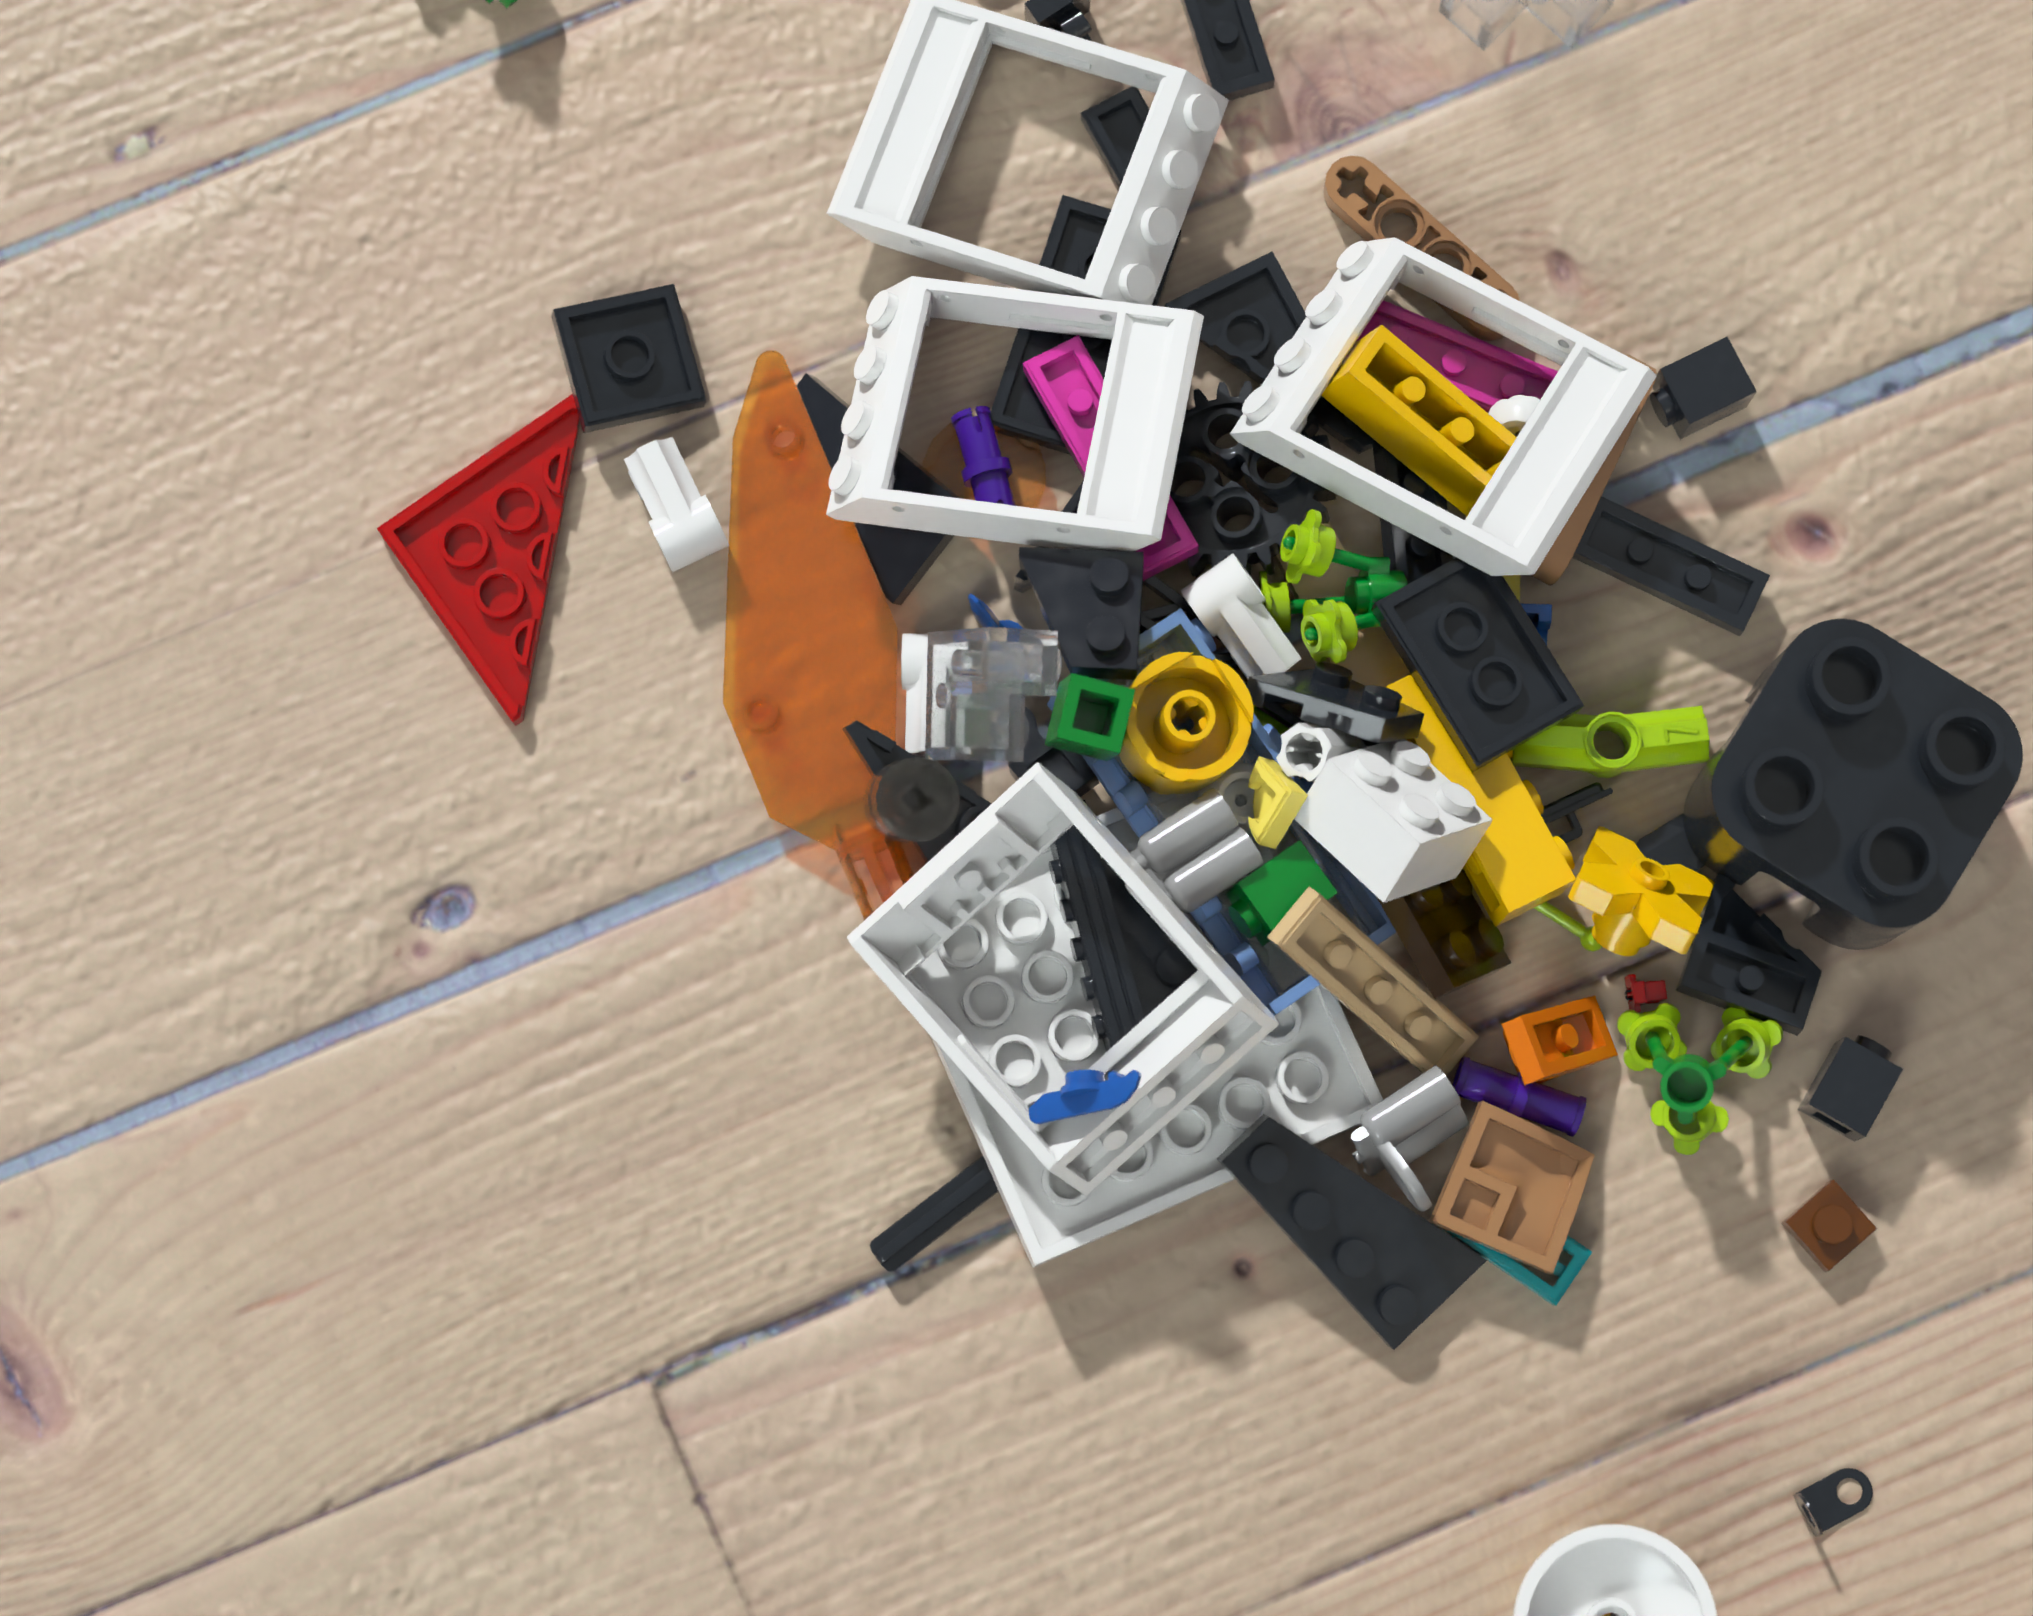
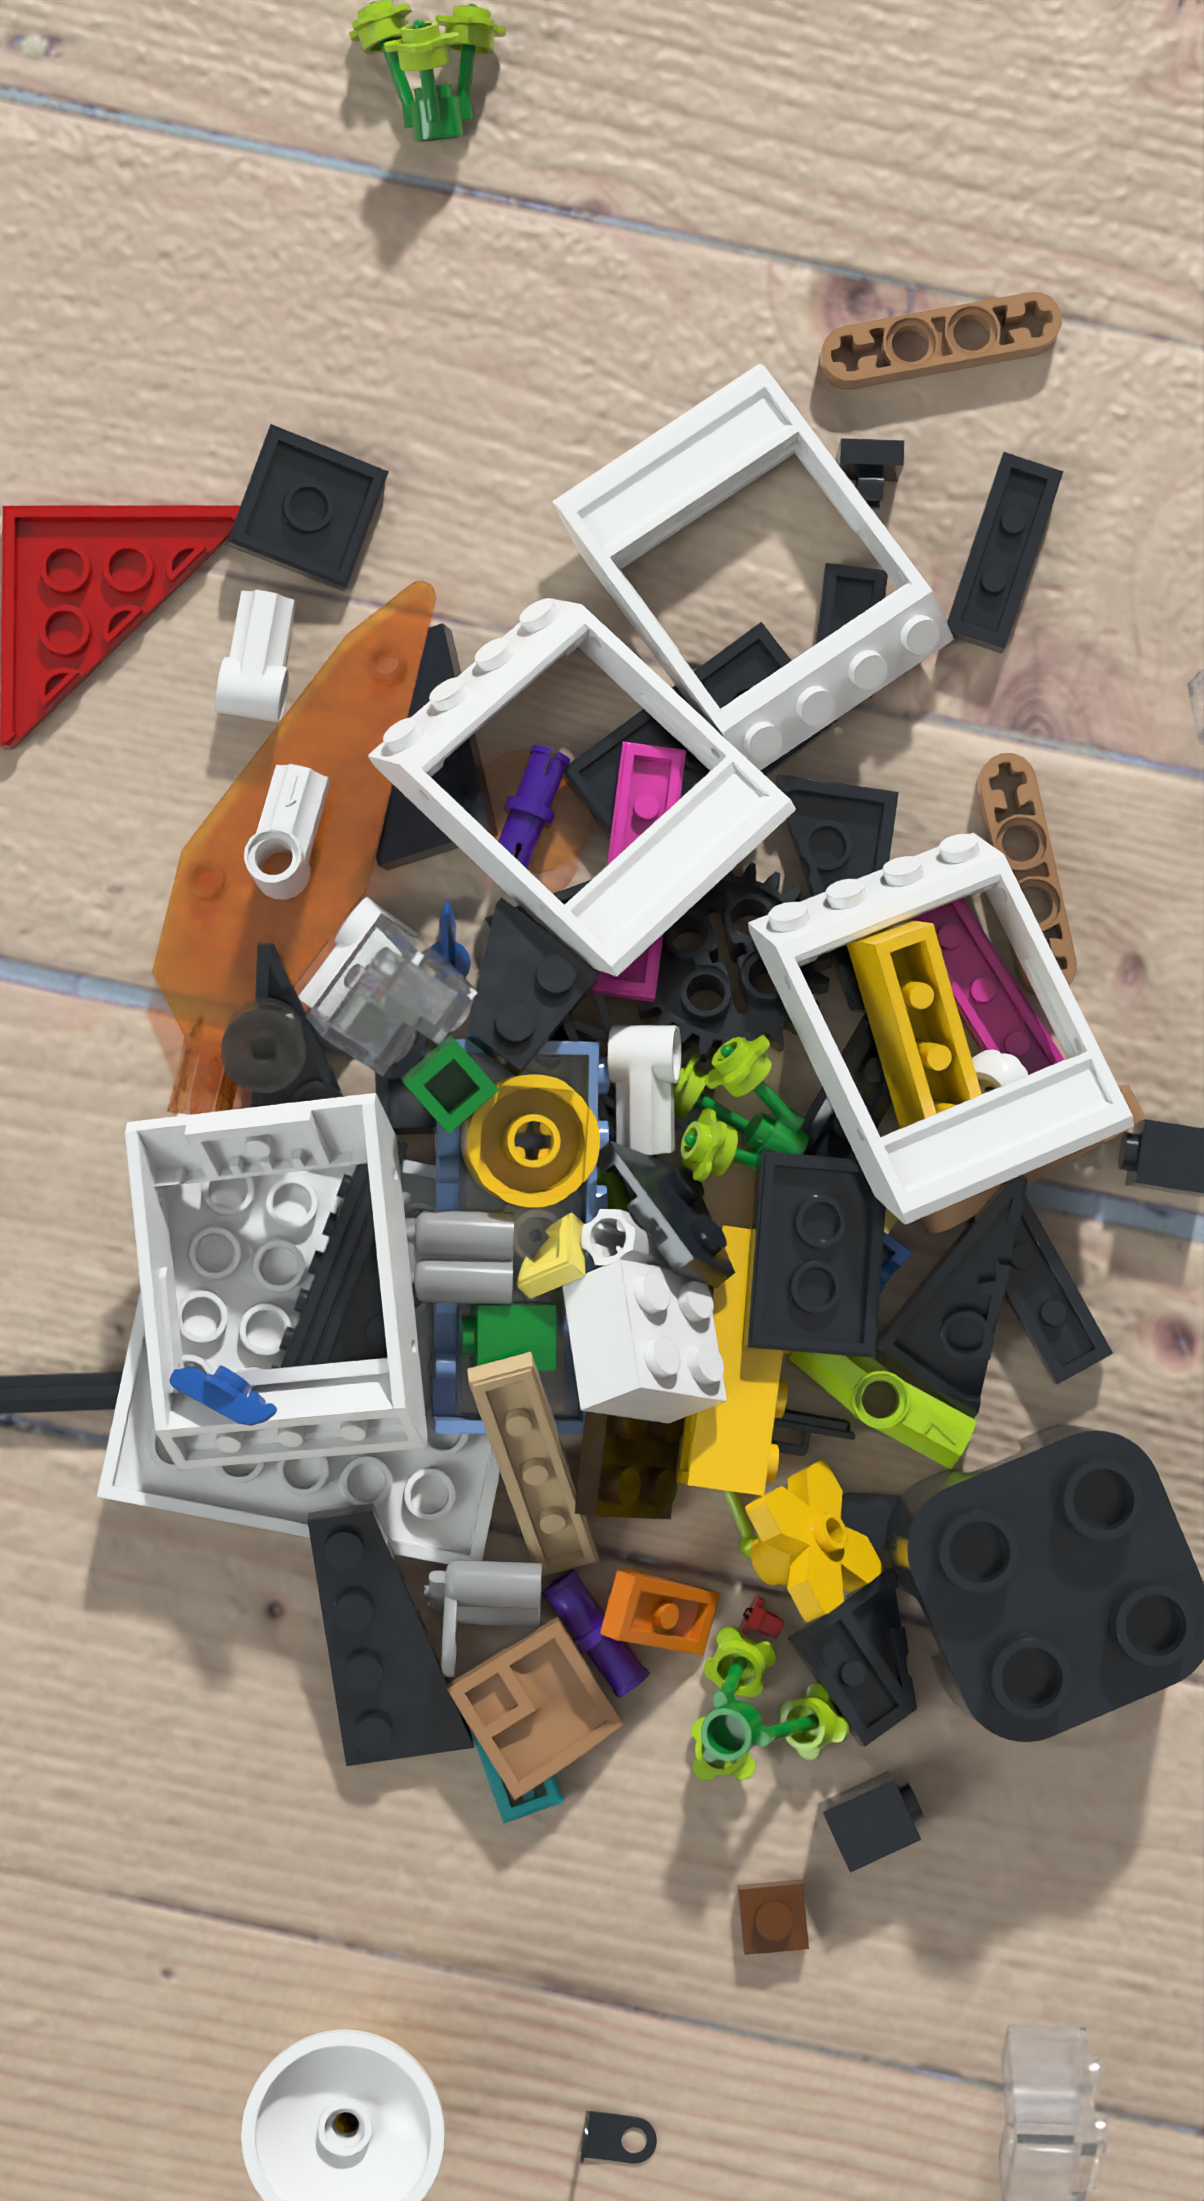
camera: 25 degrees right, 5 degrees up
(801, 620) = (288, 826): none -> white piece
(1619, 640) = (952, 1316): none -> black wing

